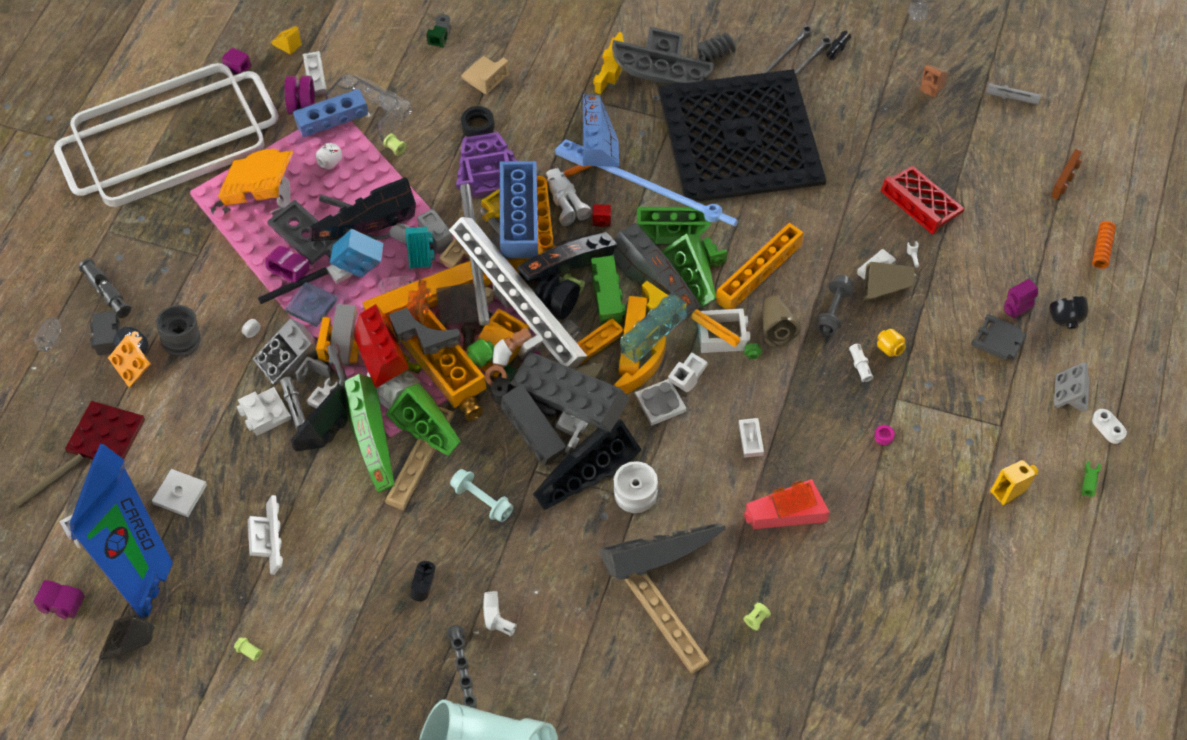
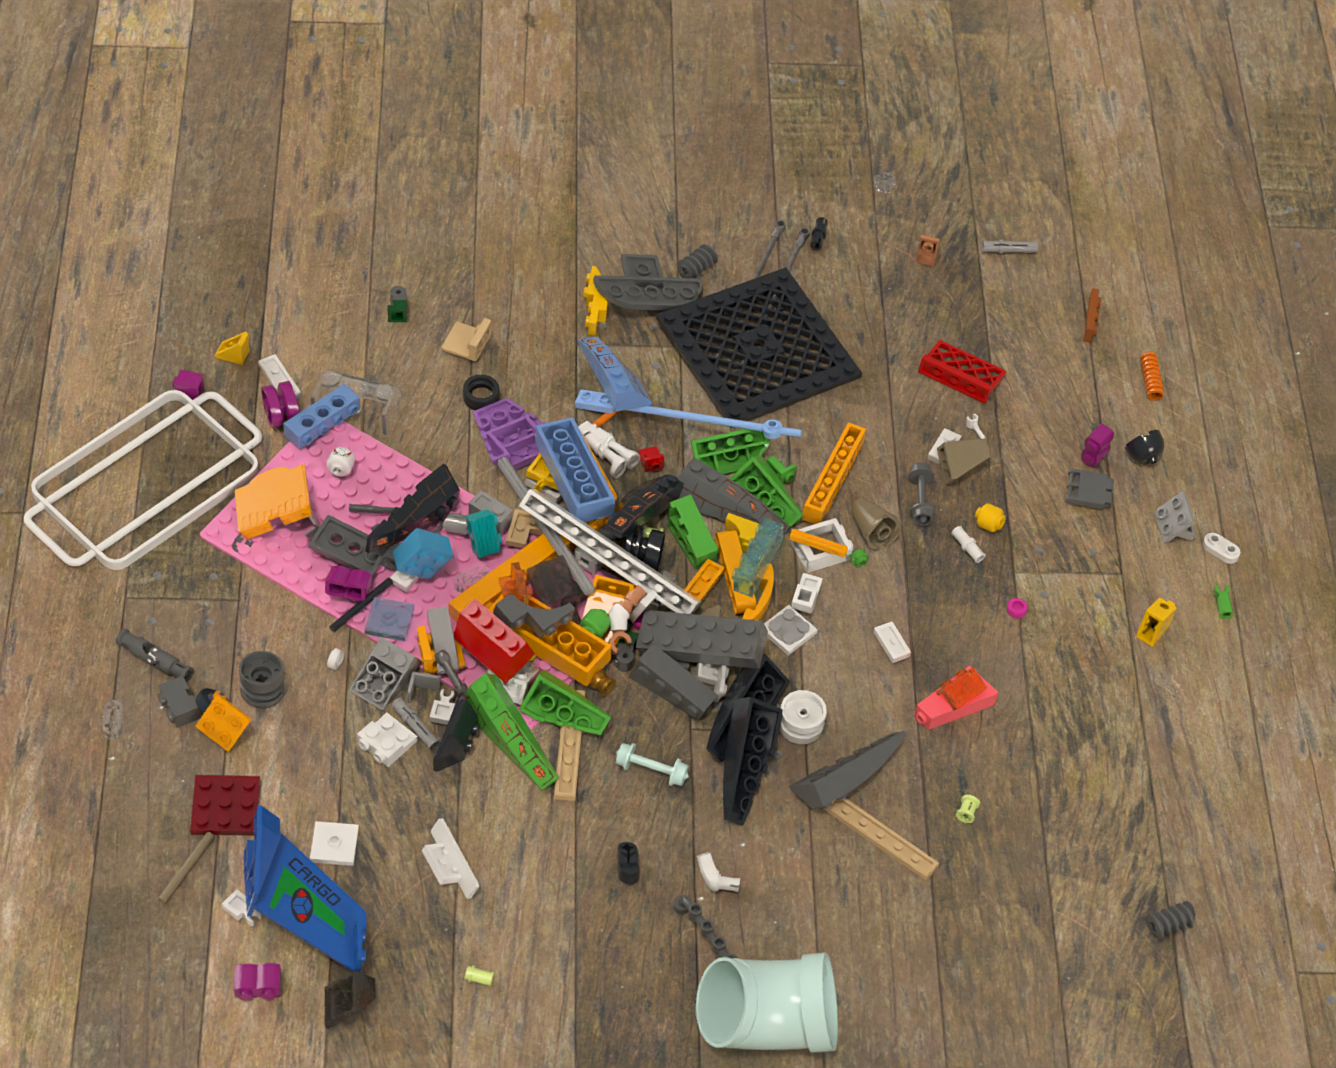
camera: 25 degrees left, 5 degrees down
(394, 144) = (402, 434): yellowish green bush -> none
(568, 511) = (748, 748): none -> black wedge

